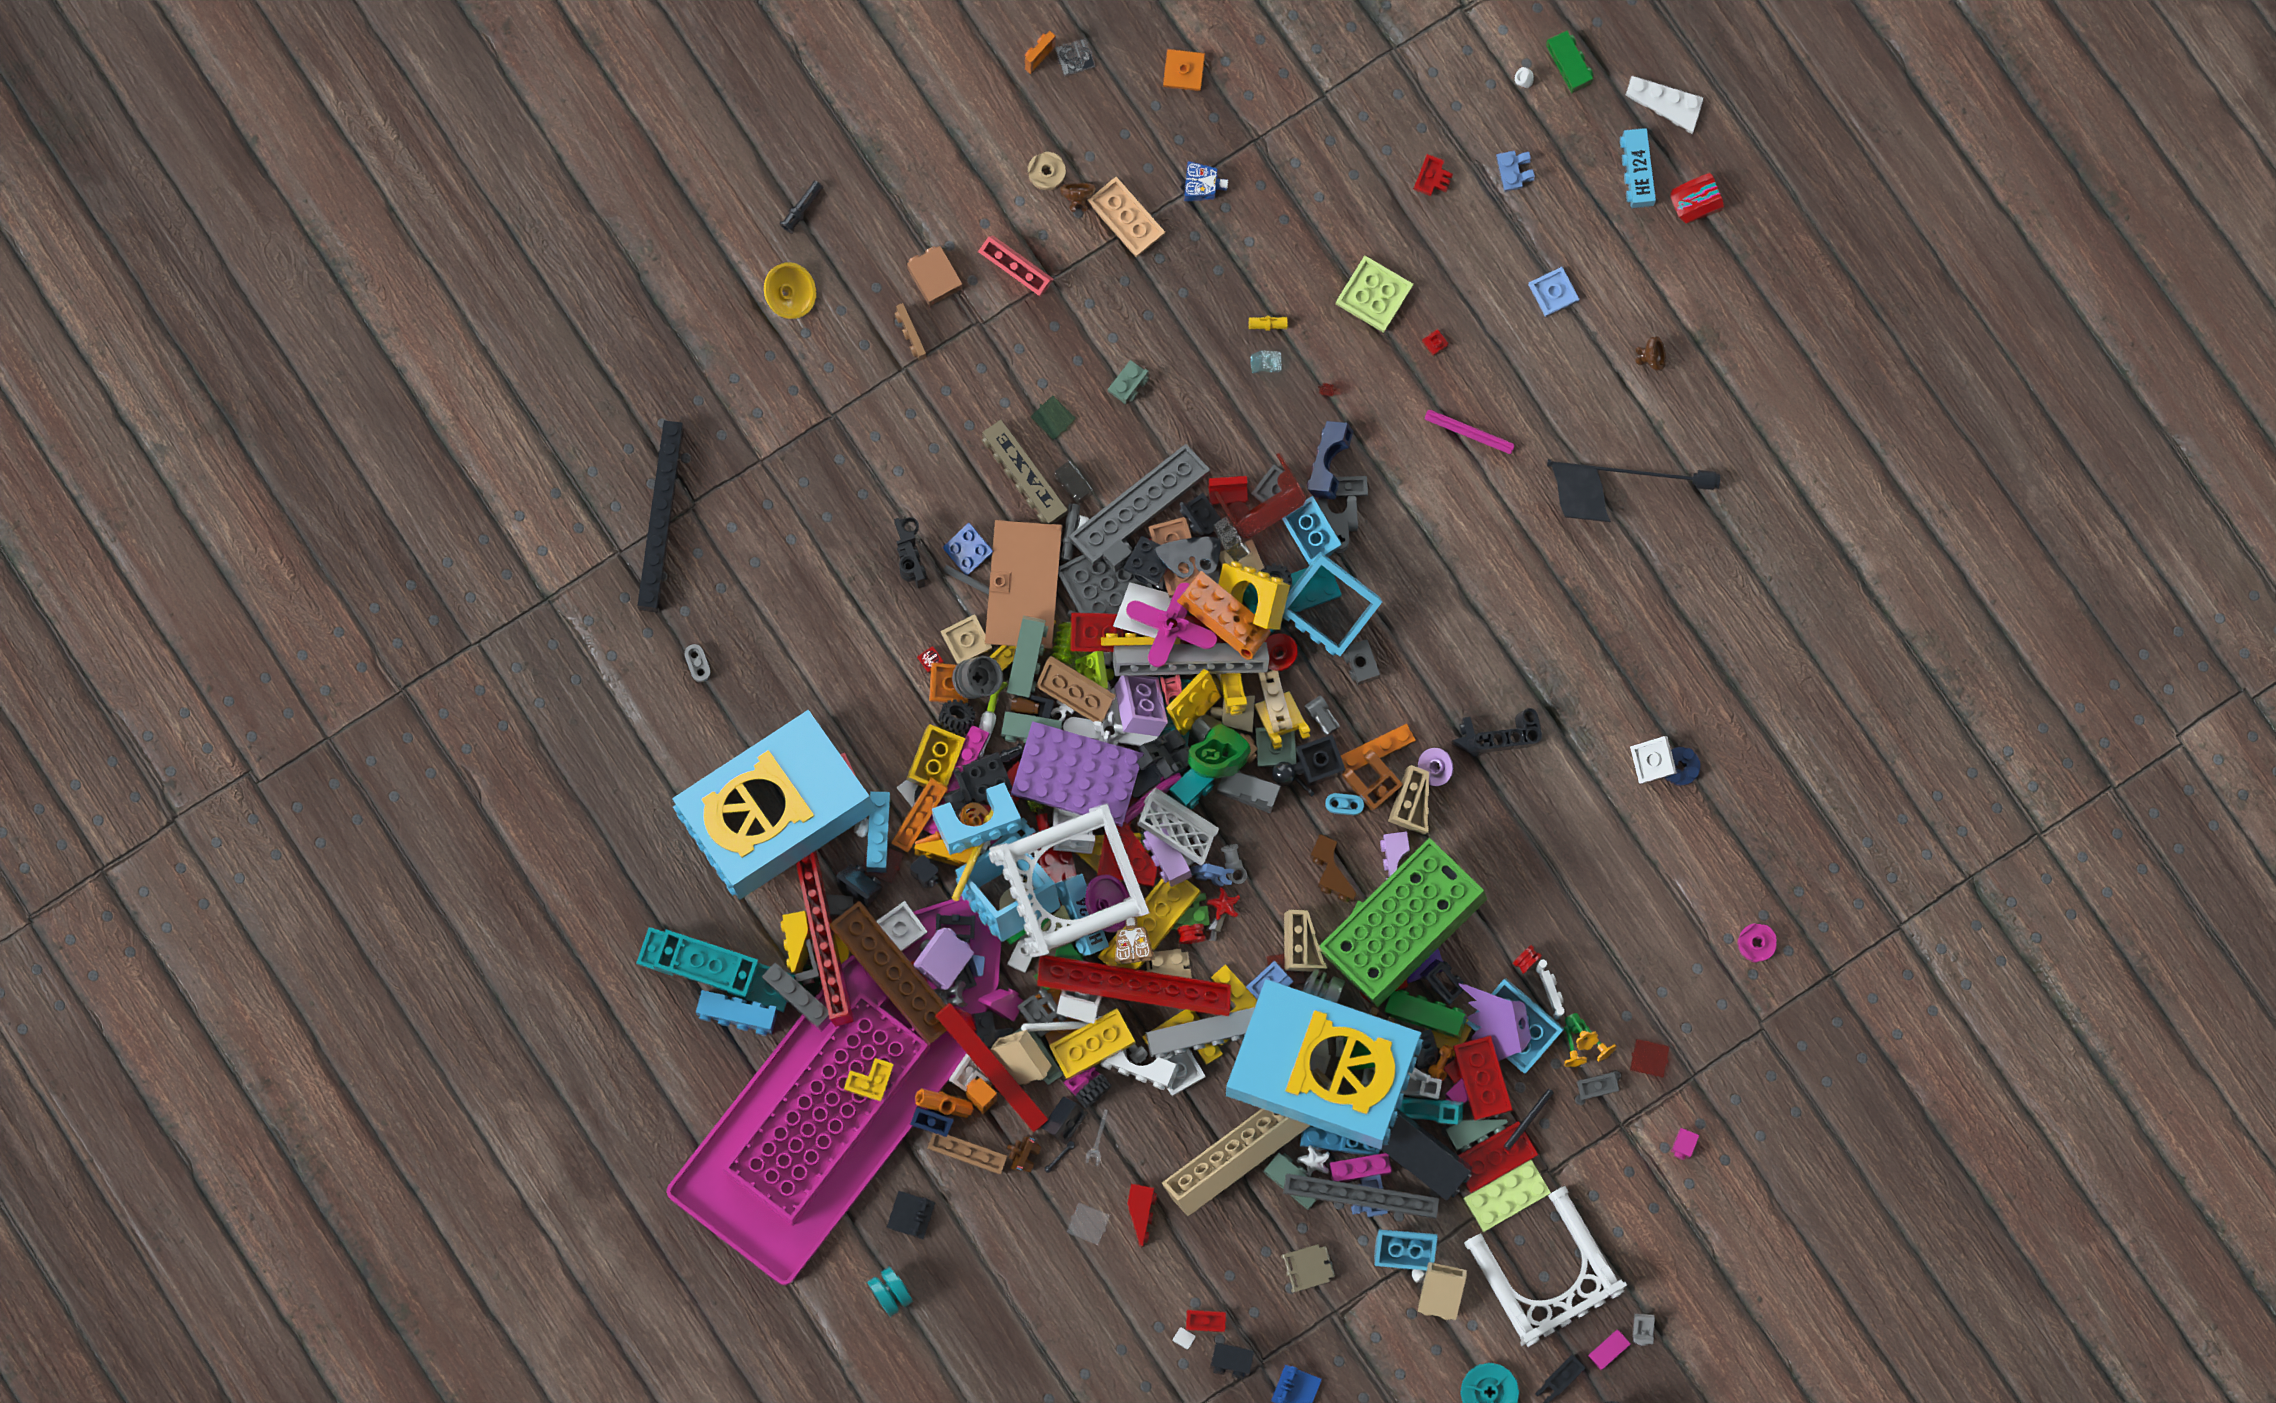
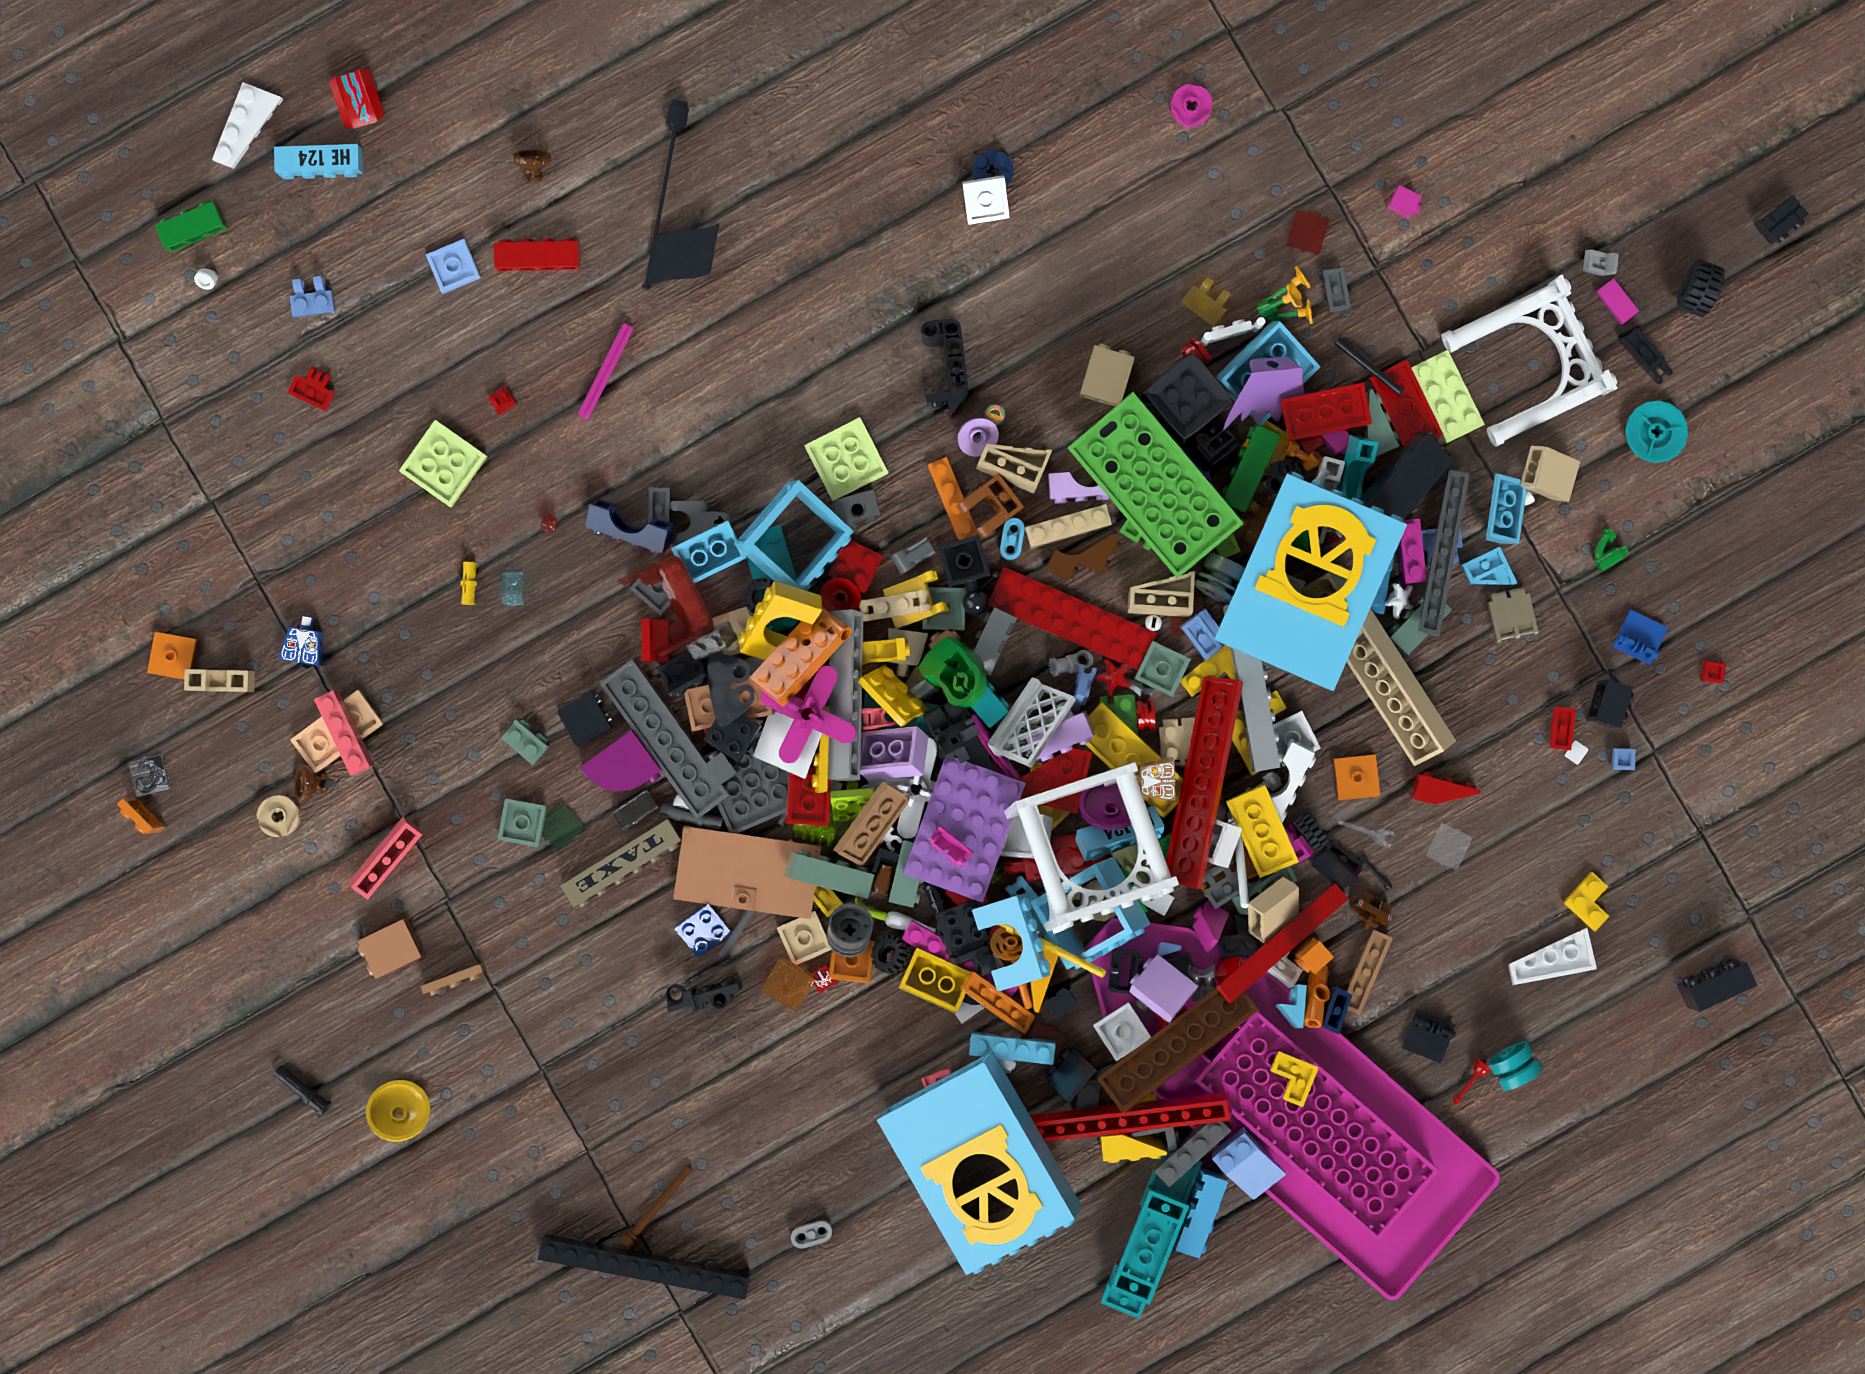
camera: 80 degrees left, 10 degrees up
(685, 503) = (630, 1238): none -> reddish brown piece
(786, 1048) = (1247, 1163): none -> slope
(882, 1263) = (1480, 1069): none -> red hinge
(924, 628) = (788, 984): none -> clear orange plate
(928, 1081) = (1295, 1012): none -> medium azure slope
(990, 1332) = (1561, 958): none -> white wing
(1045, 1351) = (1583, 900): none -> yellow plate
(1055, 383) = (522, 822): none -> sand green plate
(1055, 765) = (944, 840): none -> dark pink hinge
(1112, 468) = (622, 765): none -> magenta brick
(1126, 222) = (344, 732): none -> coral brick
(1147, 1133) = (1356, 777): none -> orange plate
(1153, 433) = (585, 718): none -> black bracket
(1164, 112) = (219, 680): none -> tan arch
(1180, 1380) = (1623, 759): none -> medium blue plate
(1234, 948) = (1162, 669): none -> sand green plate
(1274, 863) = (1071, 619): none -> red plate
(1274, 941) = (1148, 622): none -> white hinge
(1310, 665) = (856, 564): none -> red plate
(1349, 1243) = (1489, 569): none -> medium azure wing
(1352, 999) = (1228, 547): none -> lime plate
(1359, 853) = (1068, 526): none -> tan brick
(1369, 1358) = (1611, 557): none -> green plant
(1405, 650) = (846, 459): none -> yellowish green plate
(1457, 782) = (995, 413): none -> tile
(1483, 948) = (1186, 398): none -> black piece
(1502, 880) = (1107, 375): none -> tan brick
(1568, 364) = (537, 255): none -> red brick
(1573, 964) = (1203, 305): none -> clear yellow plate

